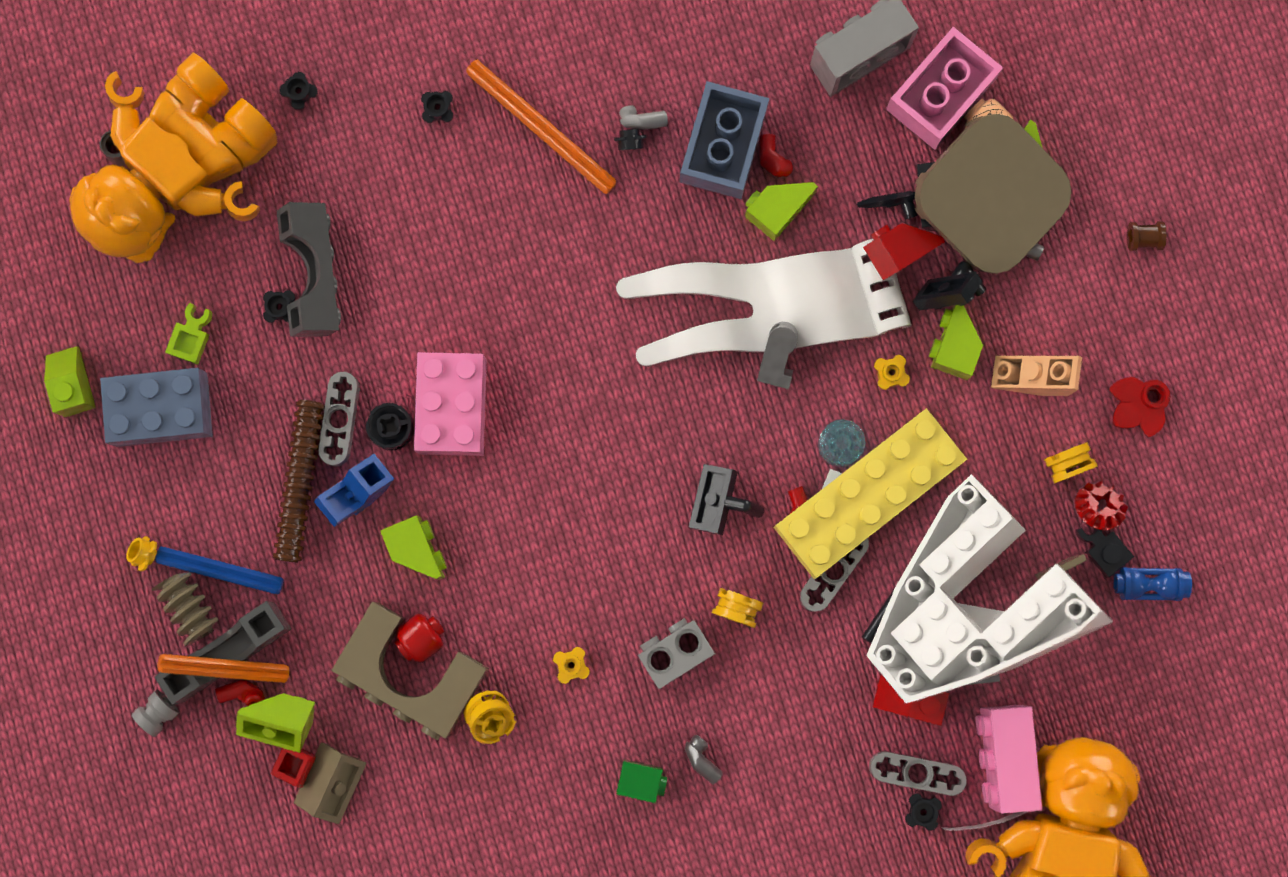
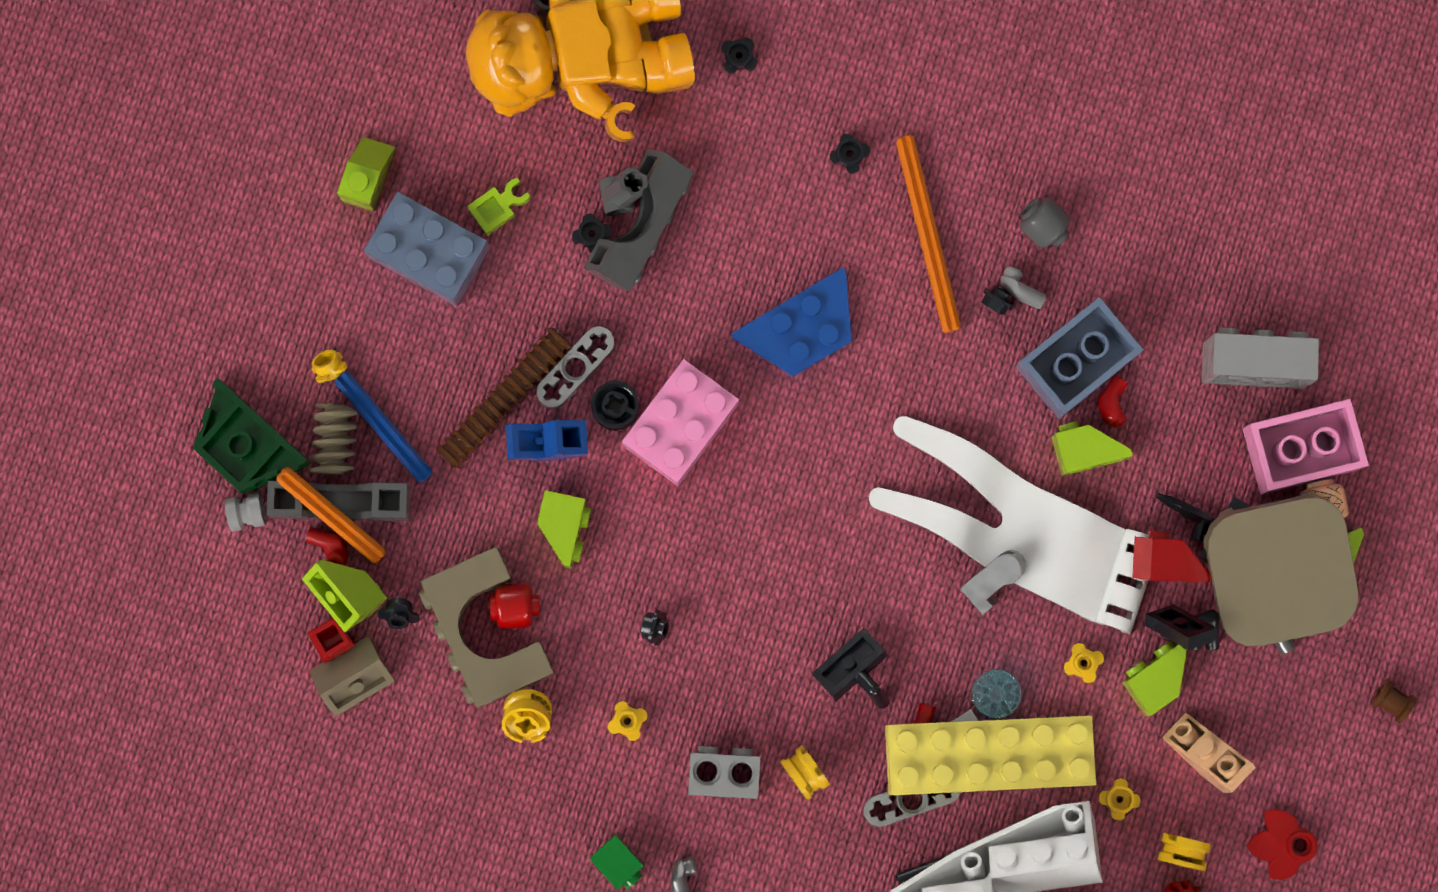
camera: 30 degrees right, 0 degrees up
(115, 660) = (243, 443): none -> dark green wing
(278, 256) = (622, 190): none -> dark grey piece
(332, 707) = (398, 613): none -> black plate
(494, 265) = (803, 327): none -> blue wing
(541, 577) = (655, 627): none -> black plate
(624, 55) = (1045, 222): none -> dark grey head
(1001, 455) = (1129, 801): none -> yellow plate

